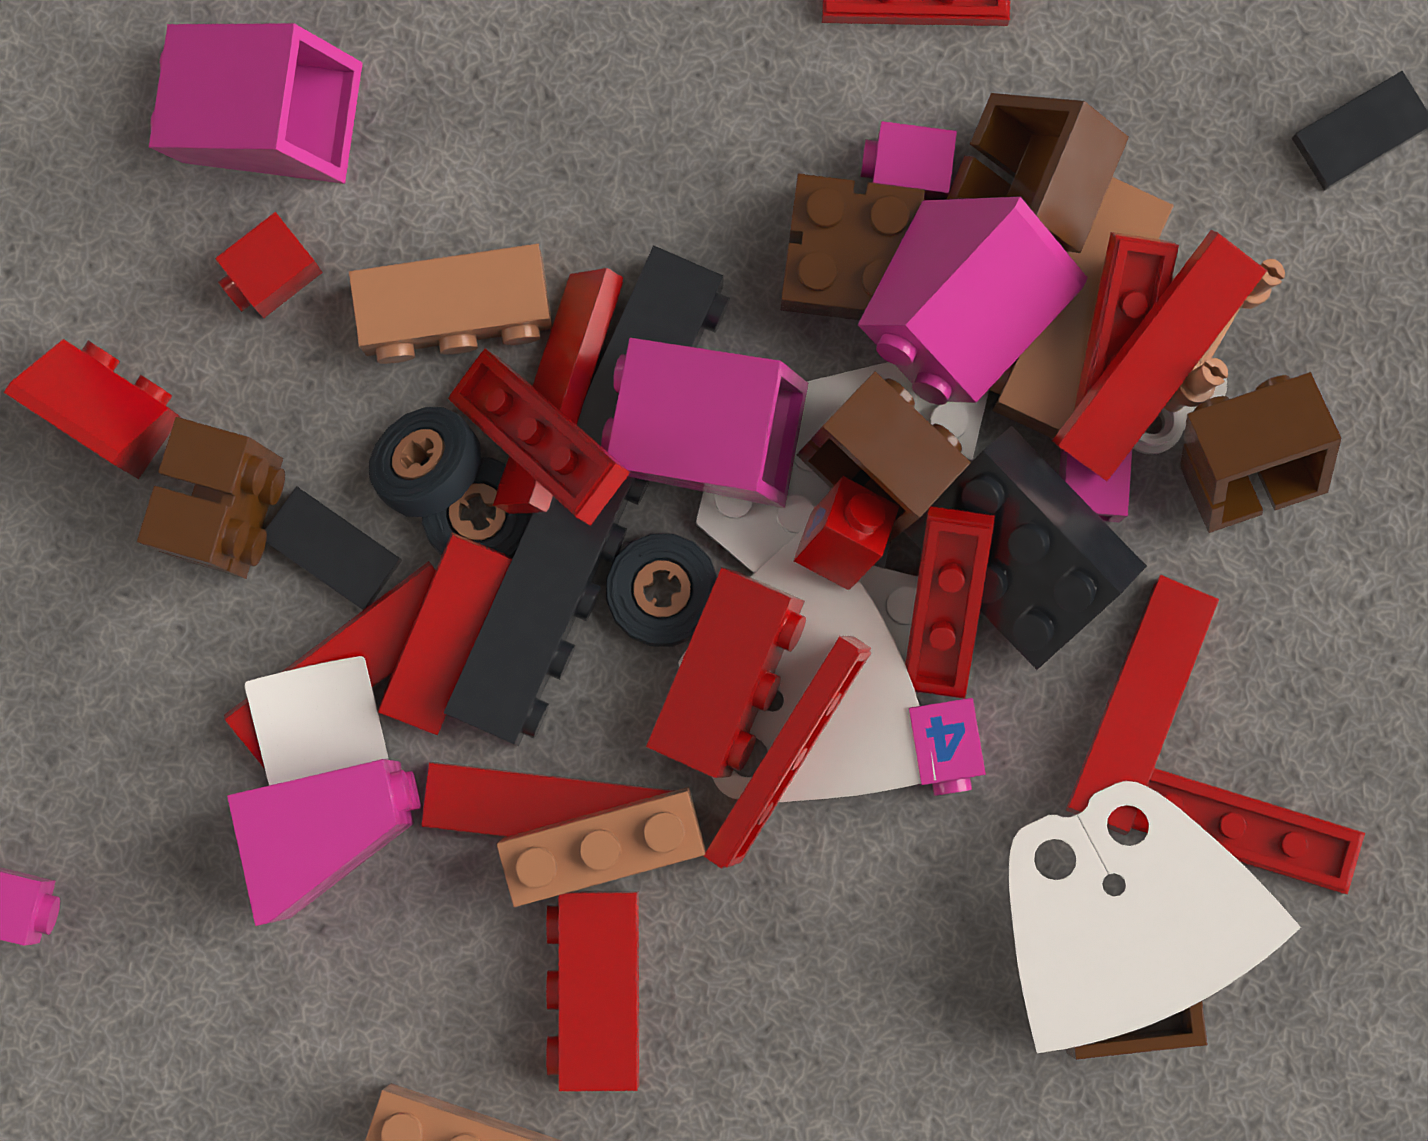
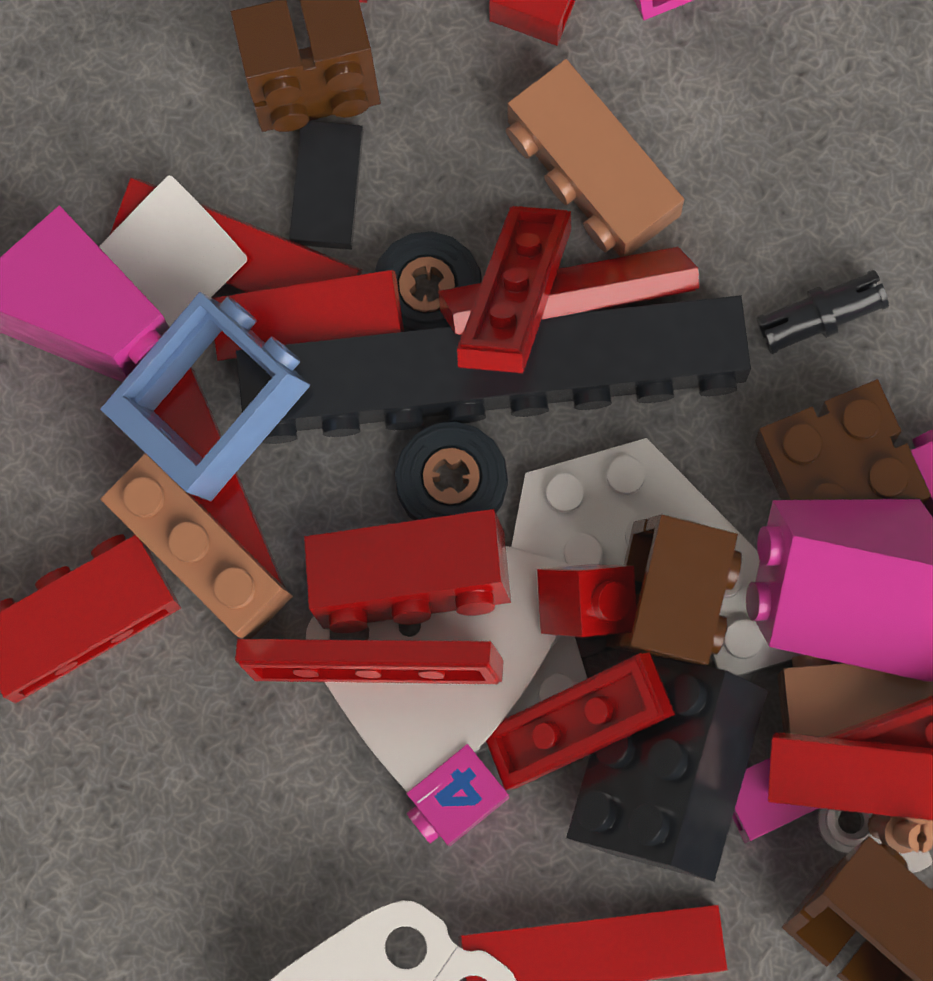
camera: 65 degrees right, 5 degrees down
(439, 483) = (442, 215): black bush -> none
(513, 819) = (166, 363): none -> medium blue window
(703, 184) = (823, 311): none -> black pin
(706, 420) = (613, 424): dark pink slope -> none

